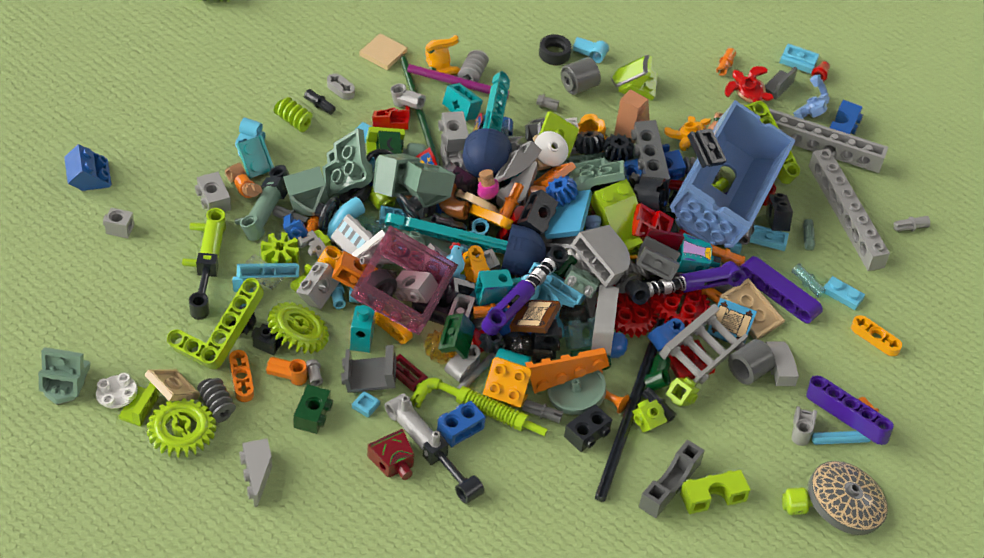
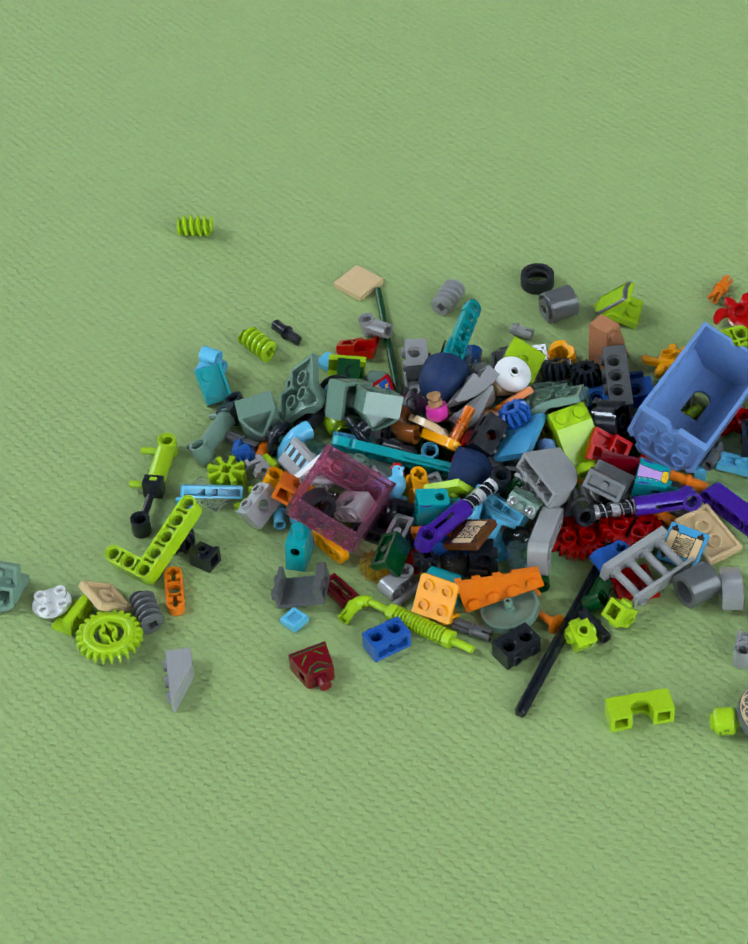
camera: 15 degrees right, 5 degrees down
(87, 169) = (48, 397): blue slope -> none
(118, 222) = (72, 447): light grey brick -> none
(213, 192) = (167, 418): light grey brick -> none
(242, 182) = (198, 409): medium nougat piece -> none
(294, 329) = (235, 549): lime gear -> none
(294, 370) = (225, 585): orange piece -> none
(313, 370) = (245, 584): light grey pin -> none
(313, 398) = (239, 622): dark green brick -> none
(343, 88) = (310, 317): light grey beam -> none
(432, 444) = (355, 659): piece -> none
(439, 56) = (412, 287): light orange hair -> none
(449, 79) = (424, 309): magenta piece -> none
(459, 98) = (433, 329): teal brick -> none
(516, 268) = (455, 488): none -> lime plate
(596, 51) = (579, 279): medium azure piece -> none
(619, 345) = (559, 567): blue piece -> none
(662, 491) = (611, 681): dark grey arch -> none
(706, 148) = (665, 369): black plate -> none

